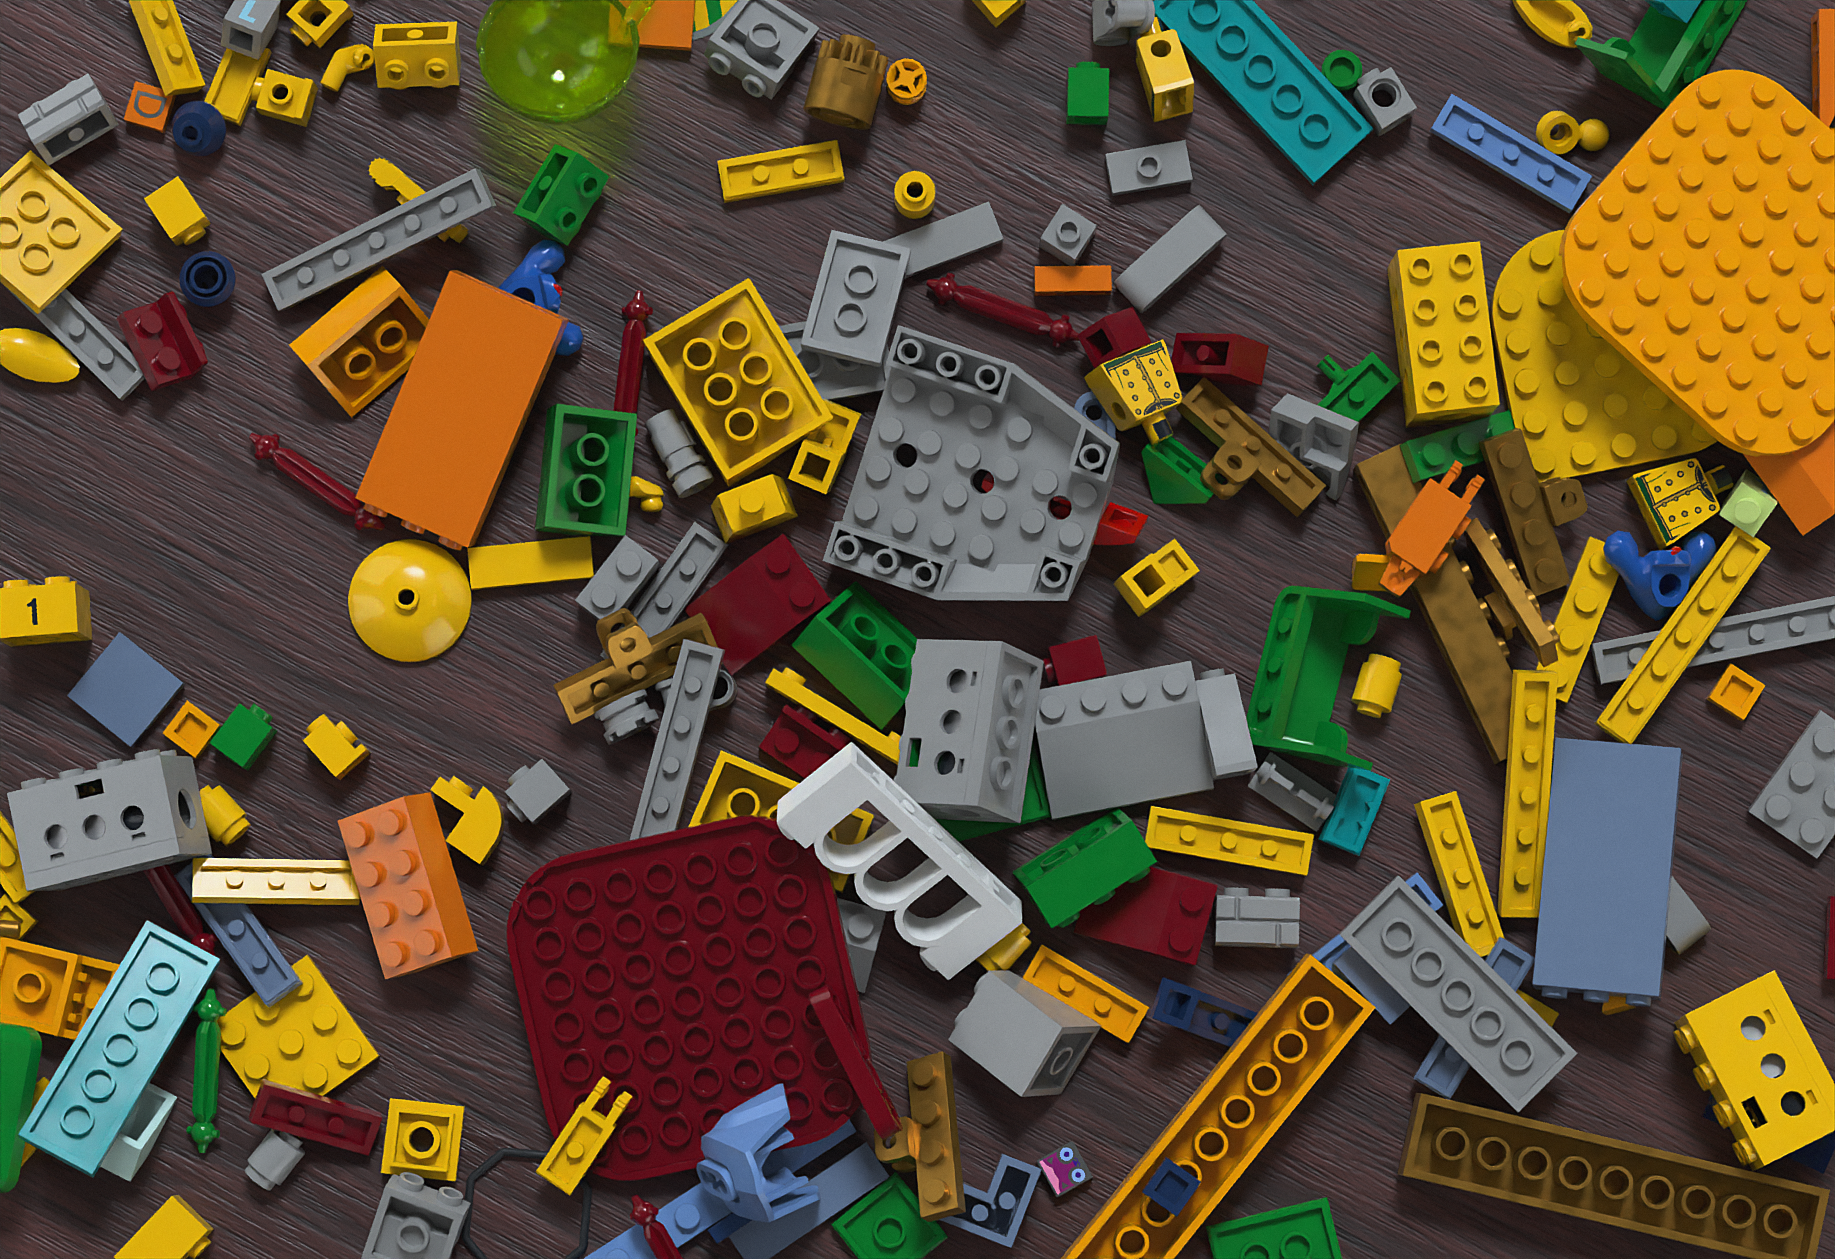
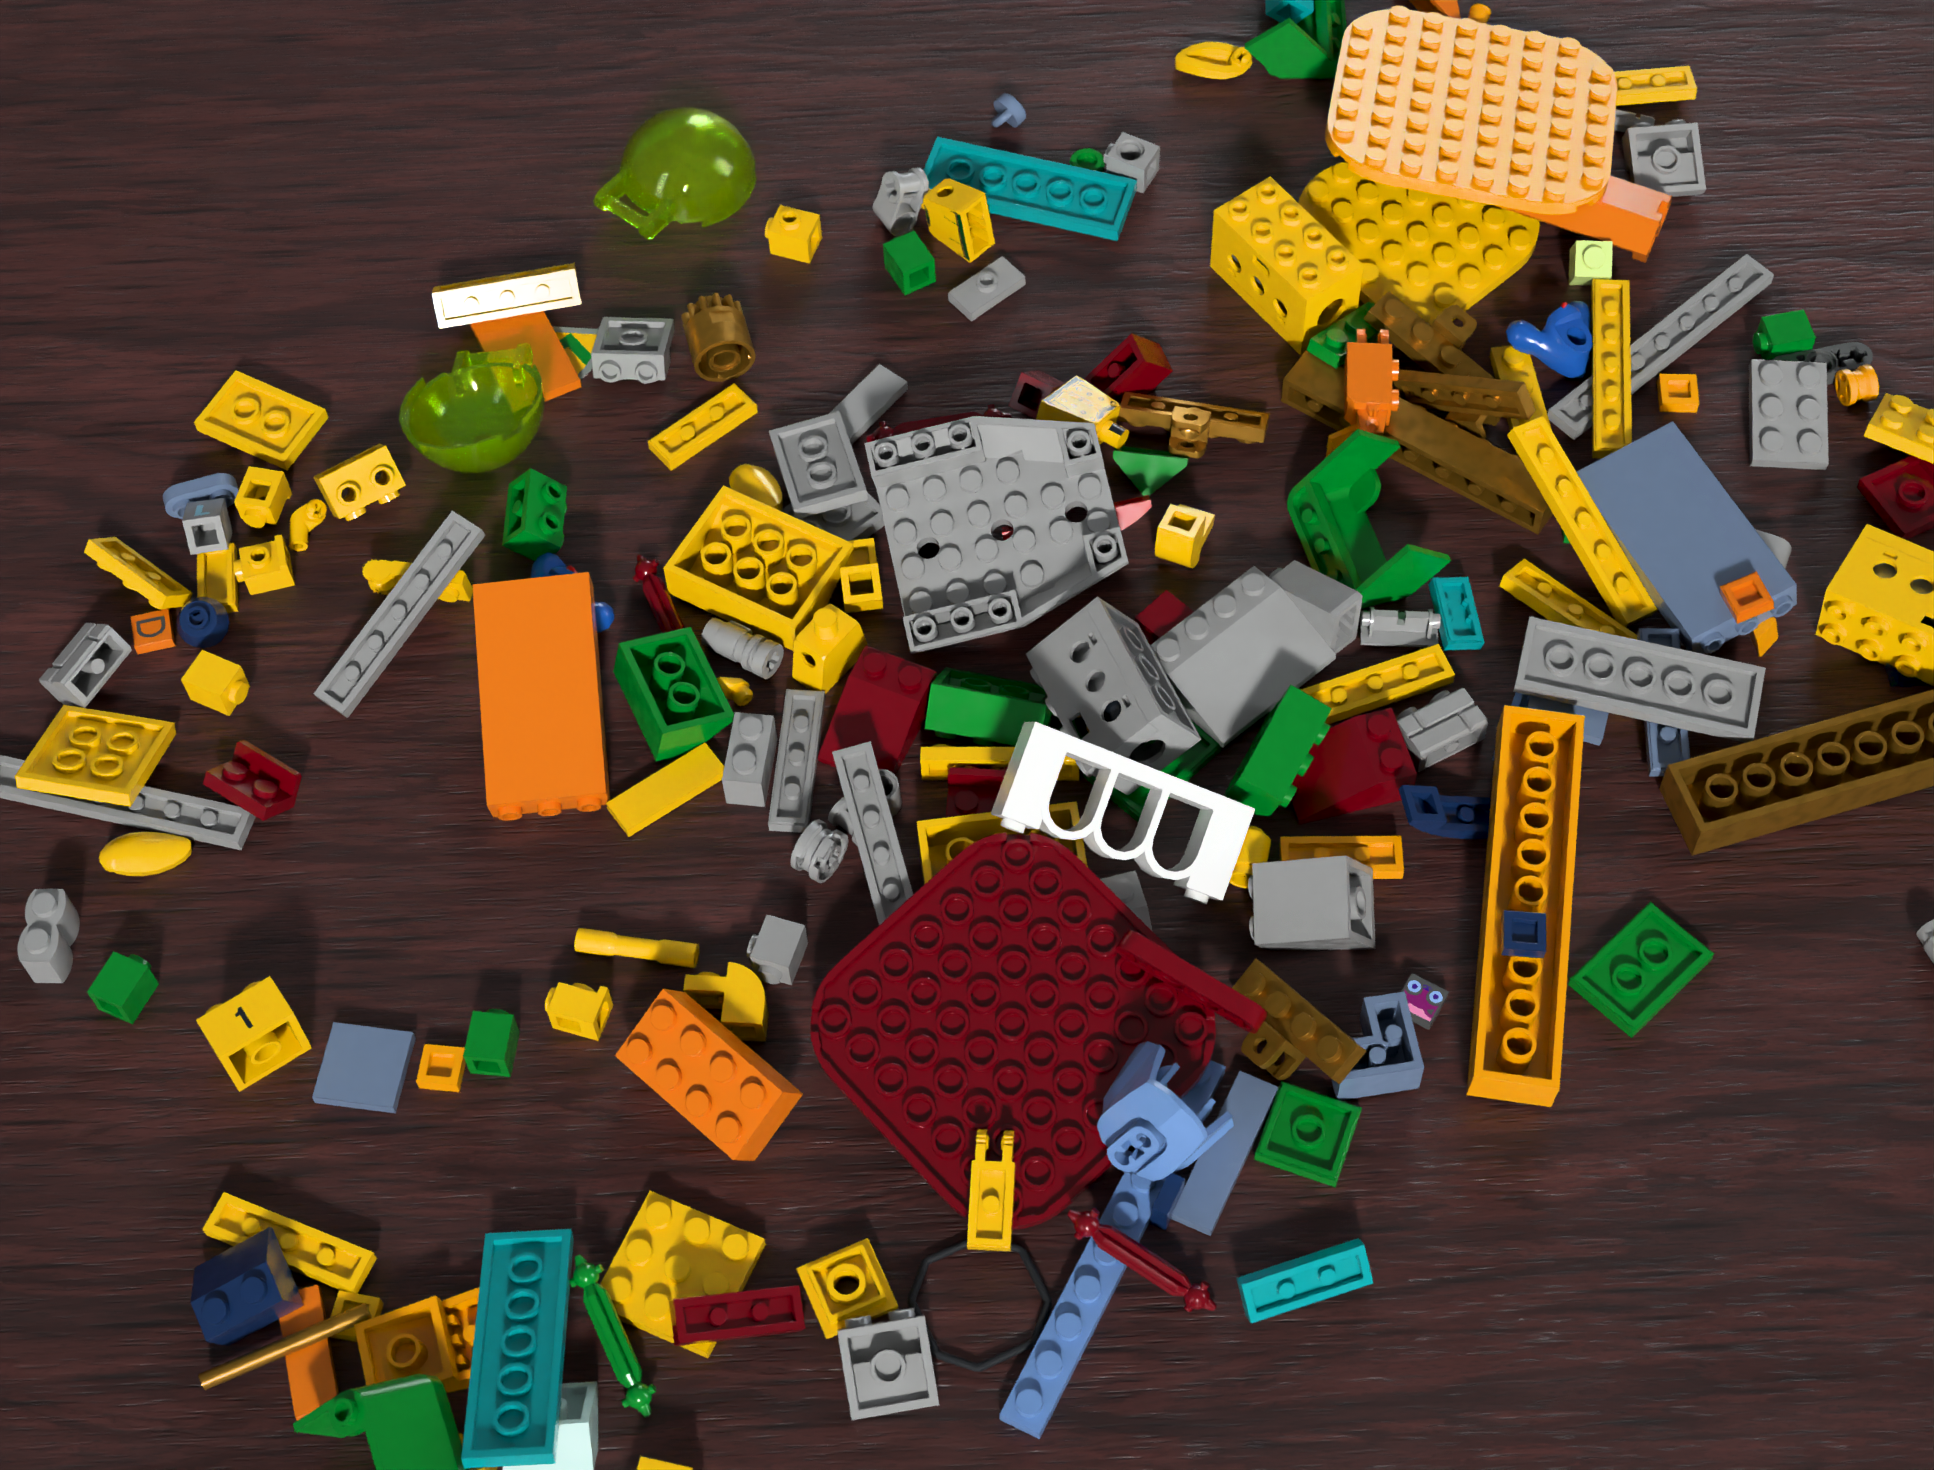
camera: 25 degrees left, 25 degrees down
(108, 820) = (404, 1160): light grey piece -> none
(180, 907) = (485, 1202): dark red wheel -> none
(200, 270) = (268, 718): dark blue cone -> none
(223, 815) = (504, 1117): yellow brick -> none
(247, 944) = (575, 1201): sand blue tile -> none
(273, 881) = (586, 1139): plate -> none
(274, 1158) = (719, 1377): light grey brick -> none
(314, 480) = (446, 822): dark red wheel -> none
(363, 341) = (429, 698): light orange slope -> none
(433, 618) = (585, 889): yellow dish -> none
(438, 728) = (662, 951): none -> yellow piece
(631, 664) = (797, 801): pearl gold plate -> none
(786, 285) = (757, 484): none -> yellow arm
(903, 74) = (764, 320): light orange wheel -> none
(910, 206) = (819, 382): yellow brick -> none
(1067, 235) = (955, 352): light grey brick -> none
(1072, 280) = (979, 383): orange piece -> none
(1170, 259) = (1044, 330): light grey beam -> none
(1316, 439) = (1241, 384): light grey slope -> none
(1358, 388) = (1244, 346): green plate -> none
(1377, 685) = (1408, 520): yellow brick -> none
(1510, 153) = (1247, 150): medium blue plate -> none
(1591, 134) = (1275, 120): yellow plate -> none
(1604, 980) = (1746, 597): none -> orange tile
(1678, 497) = (1533, 288): yellow torso -> none

